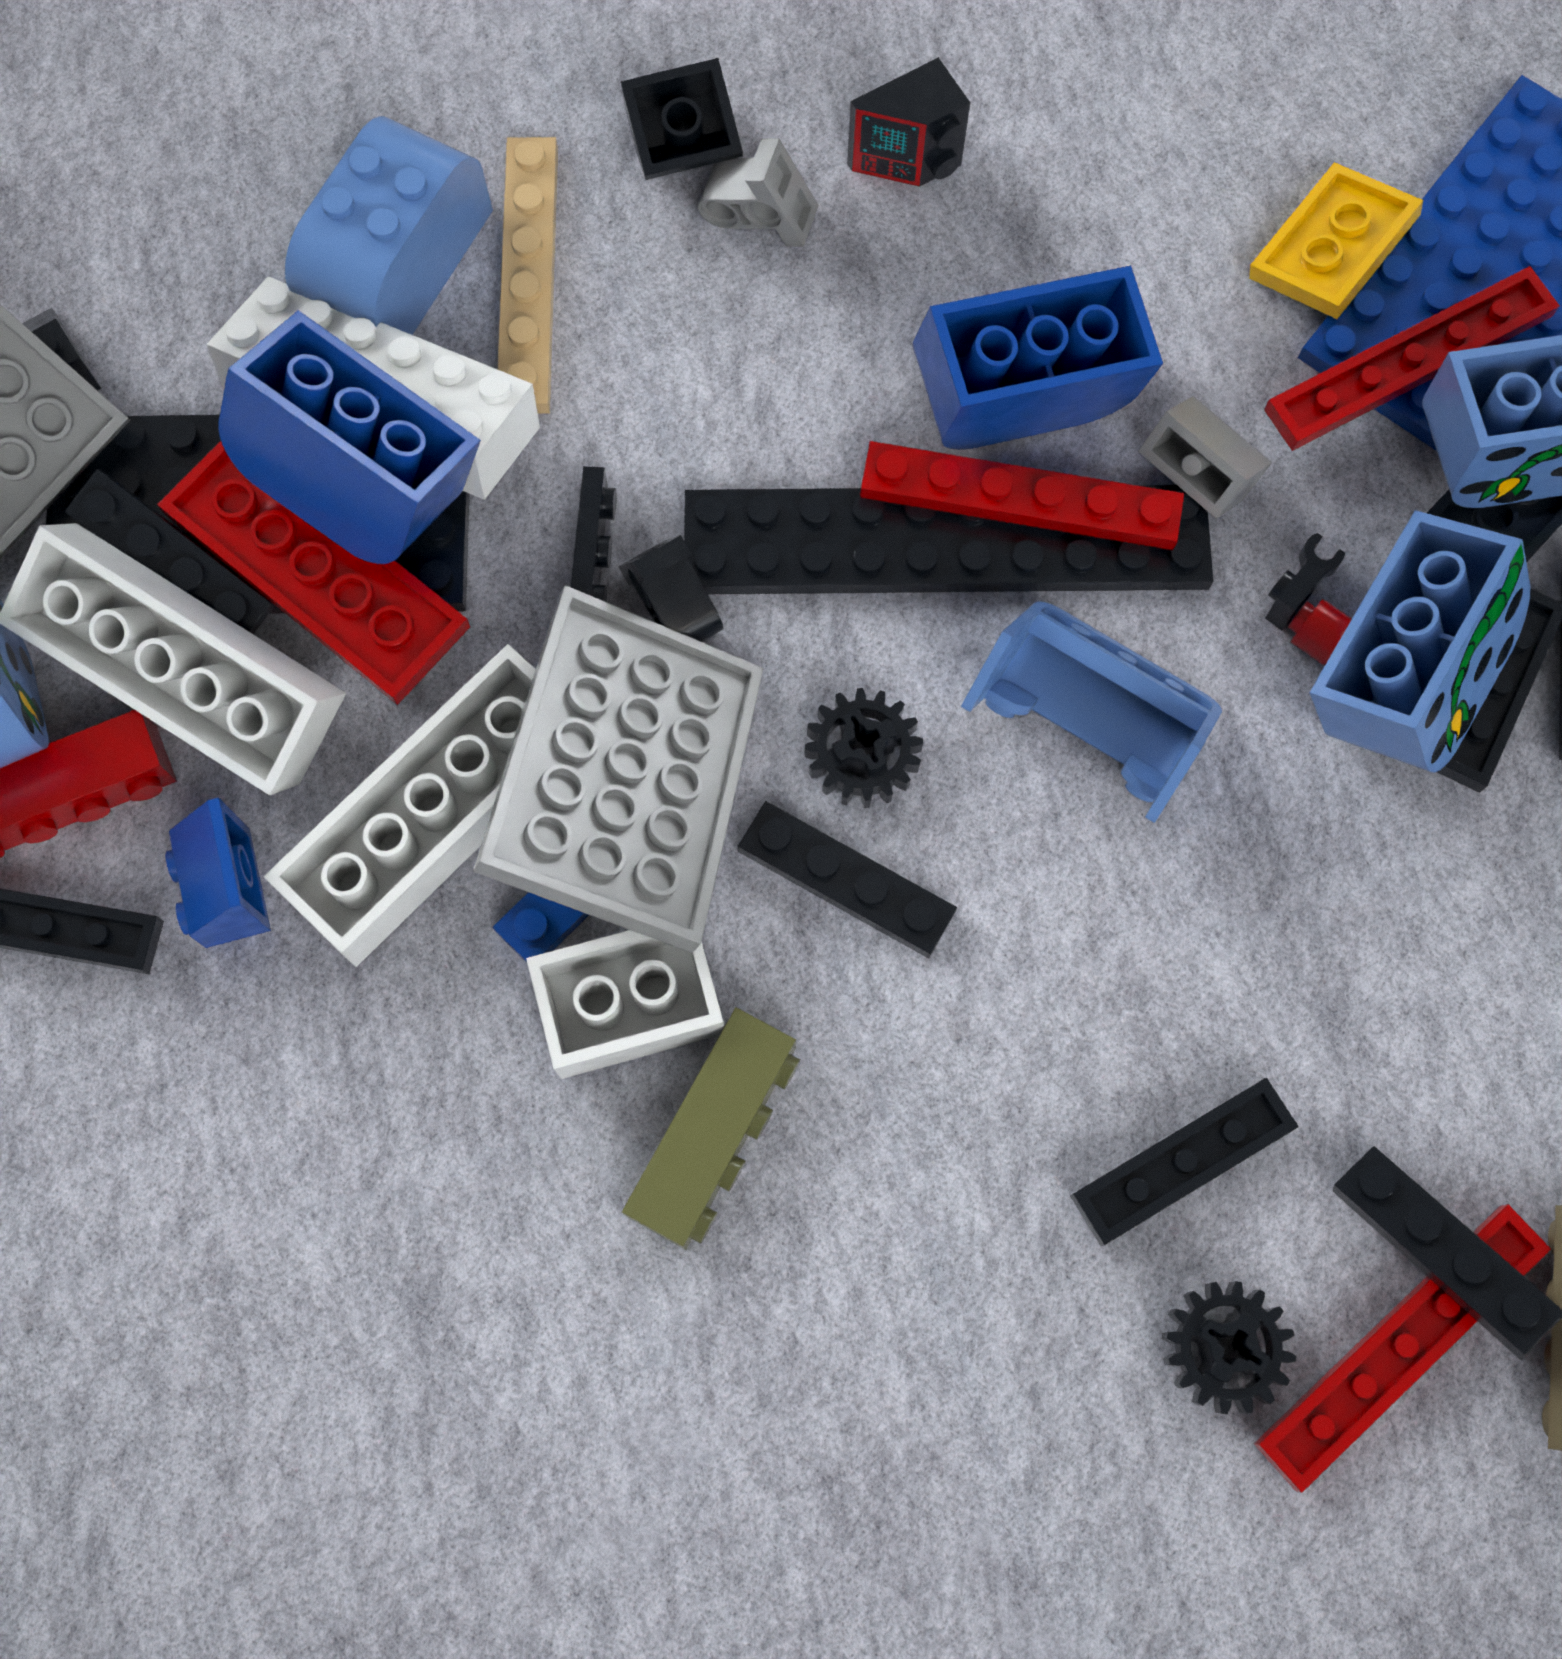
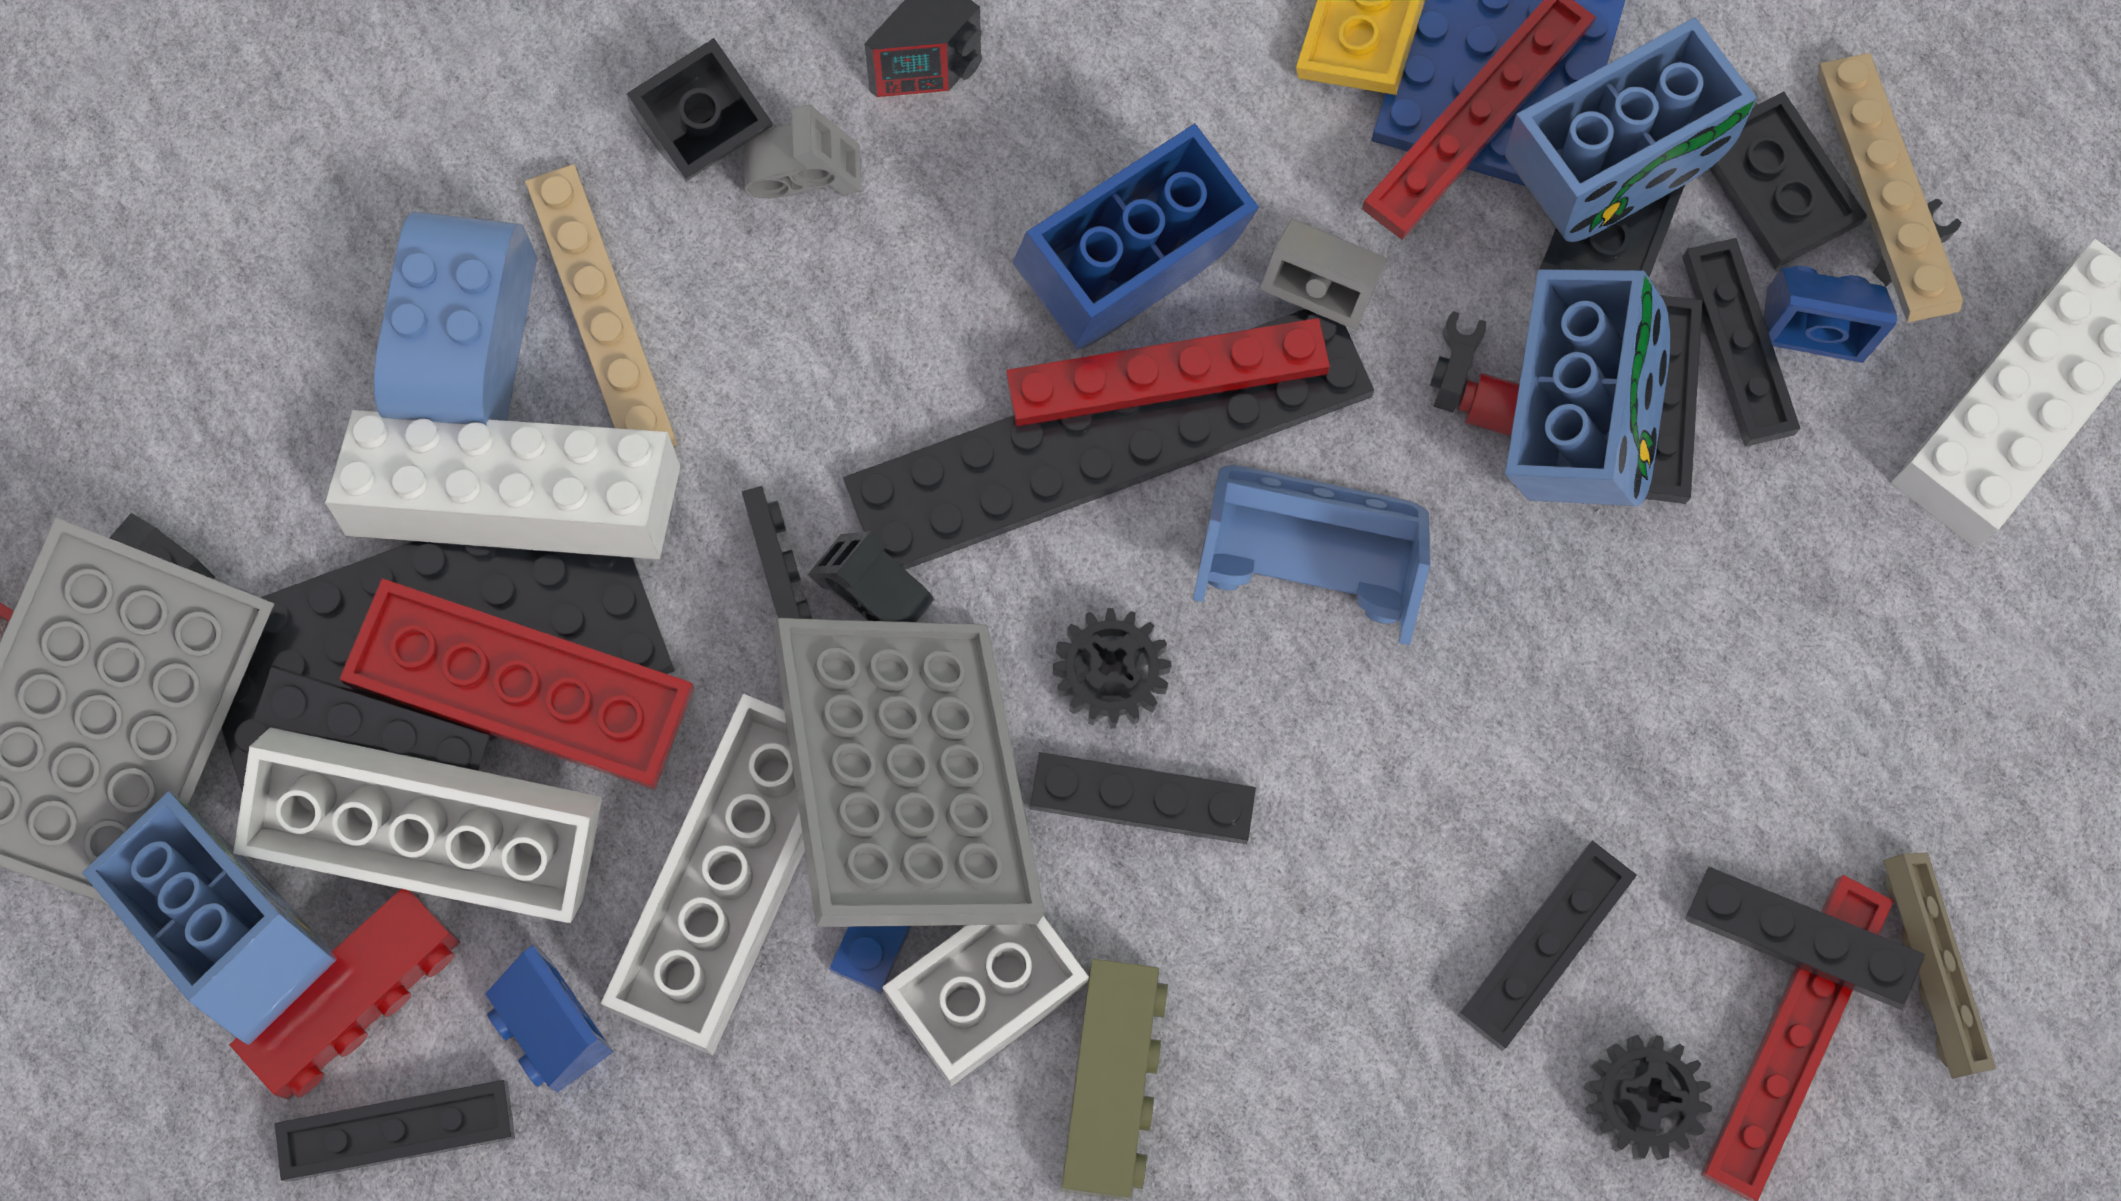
camera: 25 degrees left, 0 degrees up
(341, 441) = (514, 559): blue brick -> none

